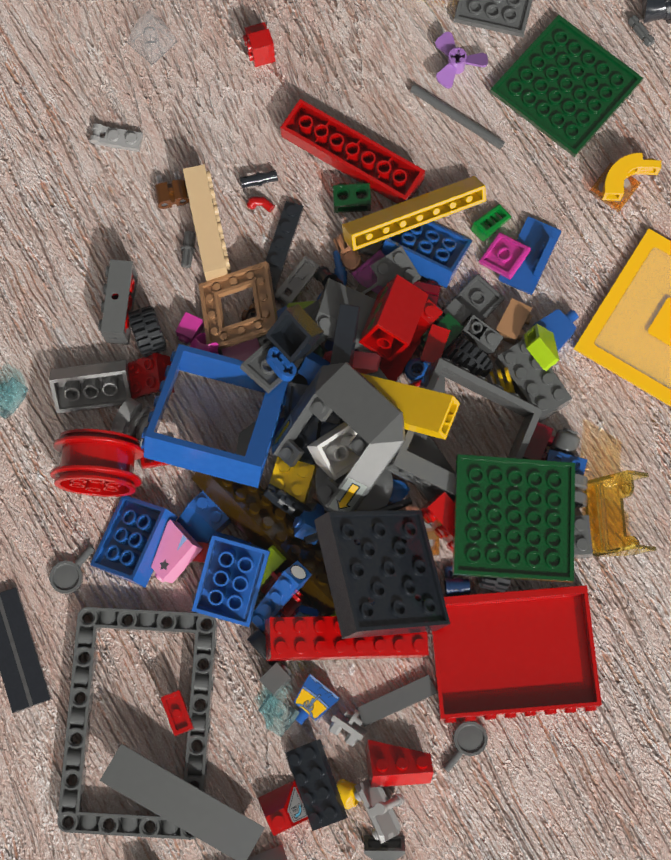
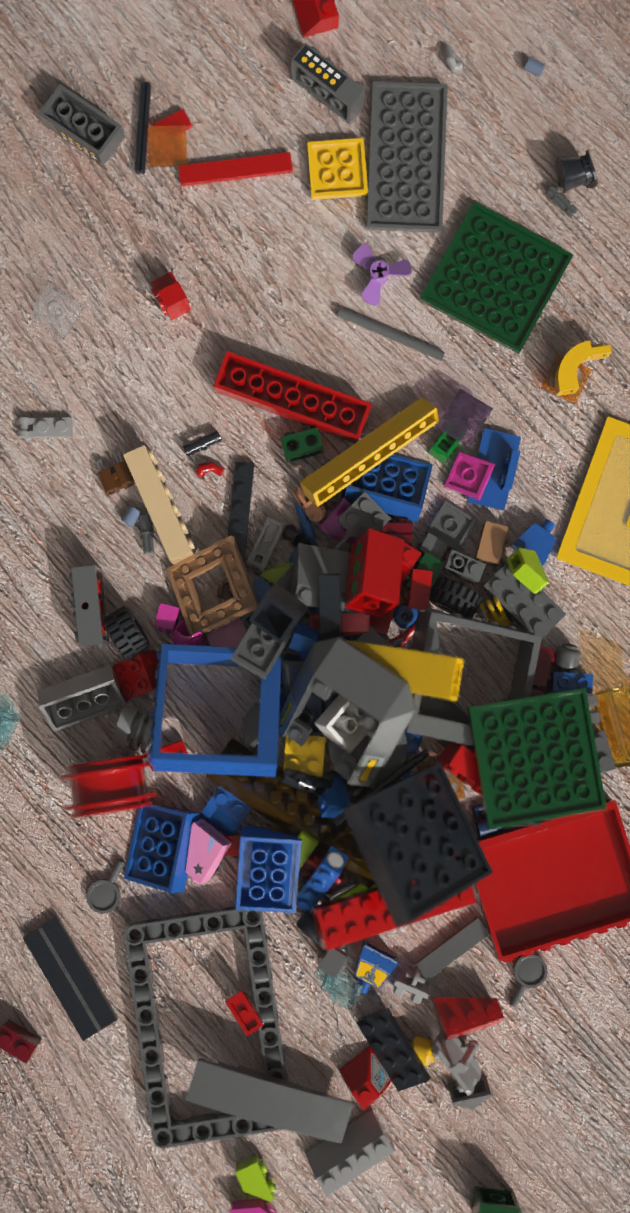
camera: 15 degrees left, 10 degrees up
(176, 231) = (131, 516): none -> sand blue hinge
(280, 364) = (270, 647): blue beam -> none
(304, 611) = (348, 886): blue tile -> none
(510, 201) = (464, 417): none -> clear purple brick

